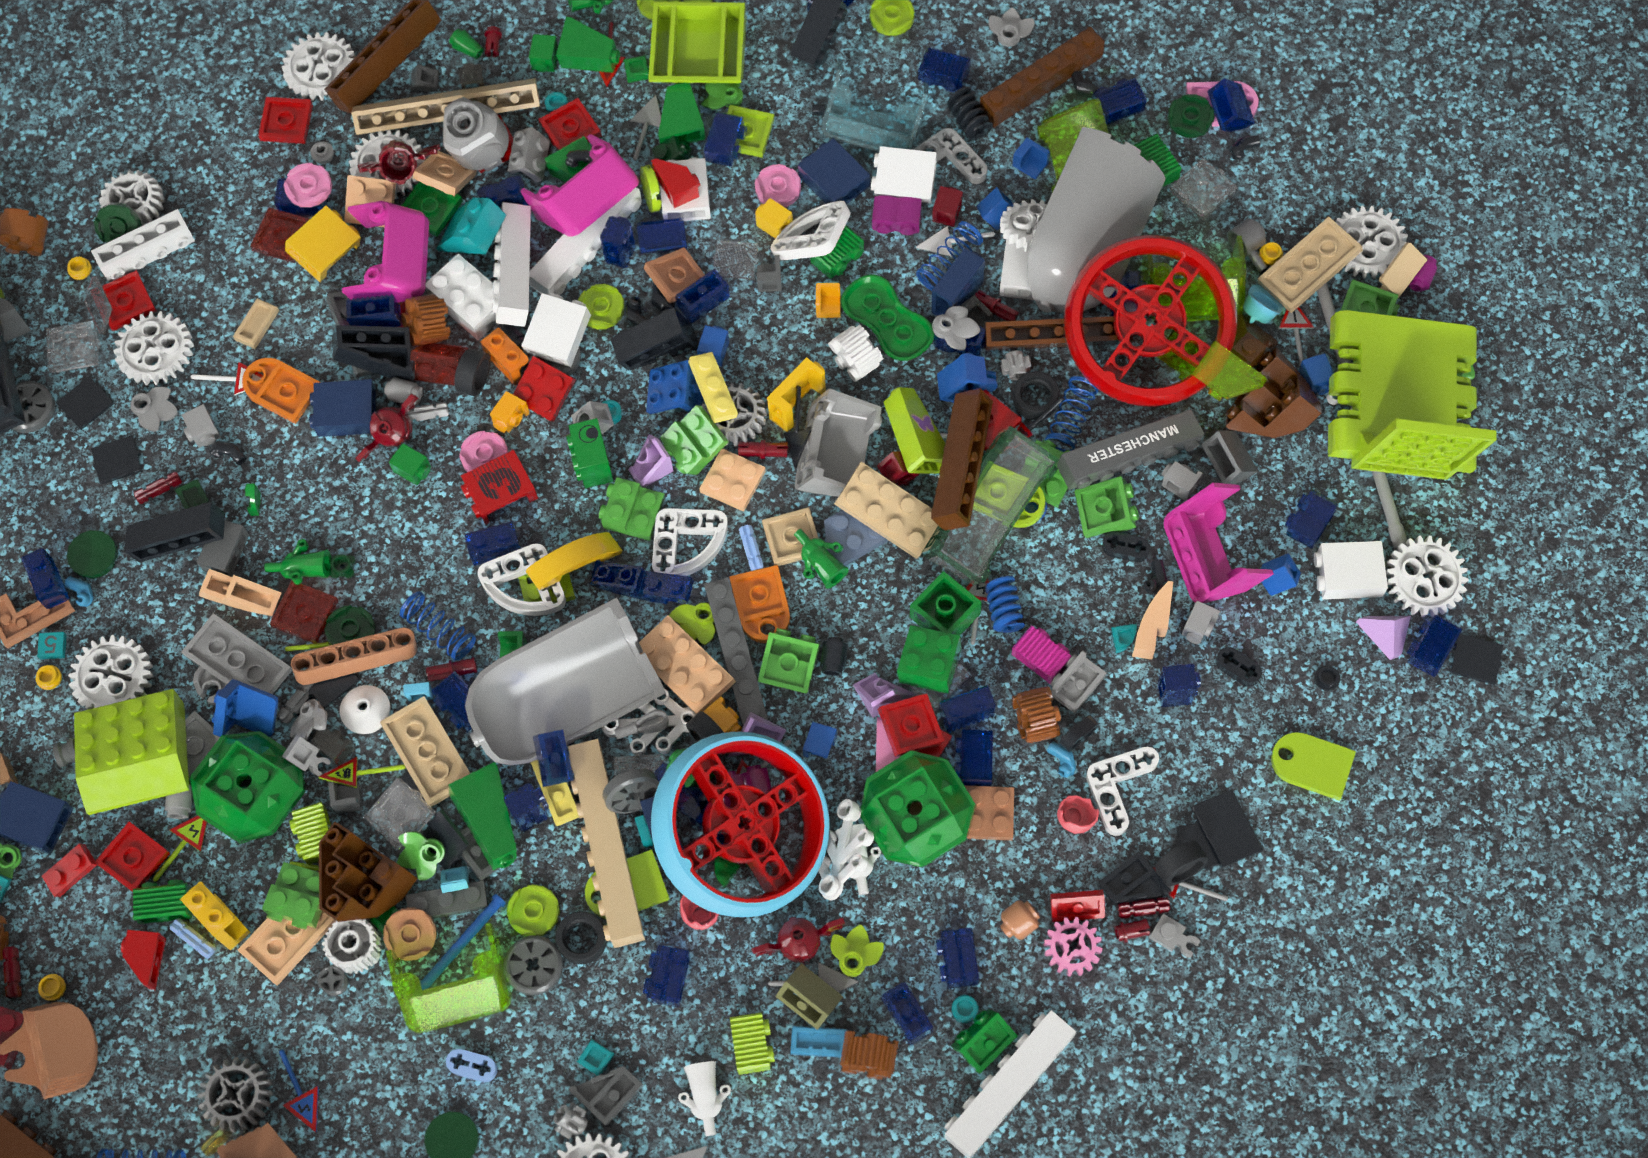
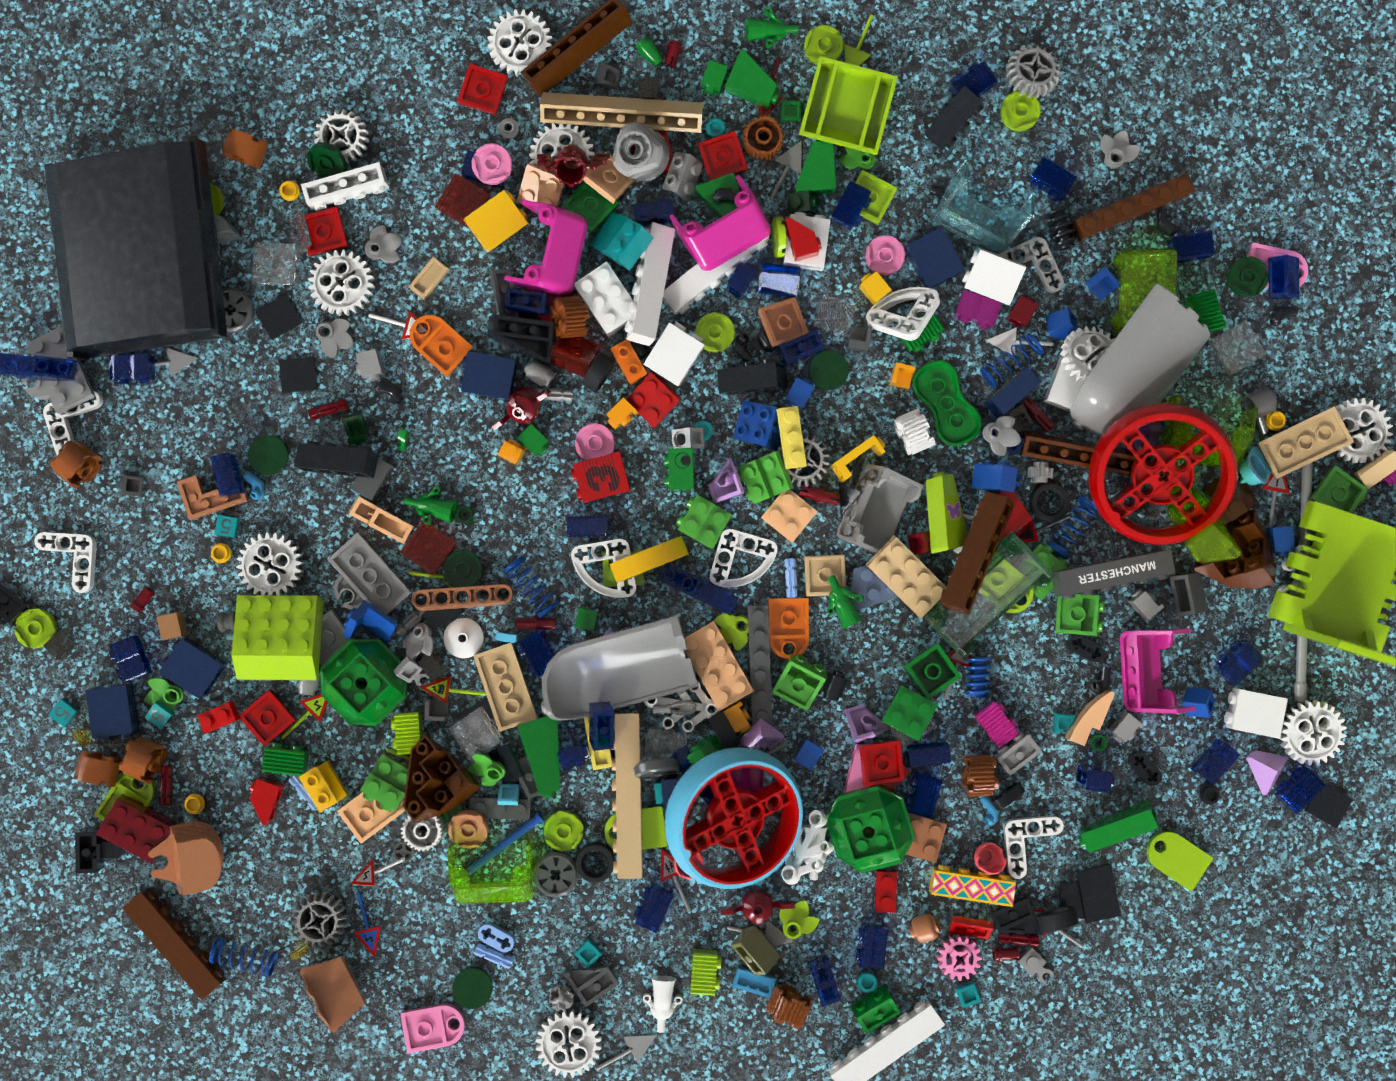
camera: 10 degrees right, 20 degrees up
(197, 300) = (386, 243): none -> light grey plate
(292, 1021) = (367, 876): none -> light grey piece
(387, 479) = (512, 451): none -> light orange brick
(472, 1090) = (493, 955): none -> light blue axle
(611, 98) = (765, 149): none -> dark orange brick
(677, 929) = (668, 871): none -> piece
(742, 316) = (828, 370): none -> dark green tile
(959, 889) = (885, 891): none -> red plate
(1065, 853) = (972, 886): none -> brick
(1098, 994) = (968, 994): none -> teal tile
(1167, 647) = (1103, 744): none -> green hinge
(1226, 738) = (1119, 826): none -> green slope
(1320, 636) = (1215, 761): none -> clear blue brick

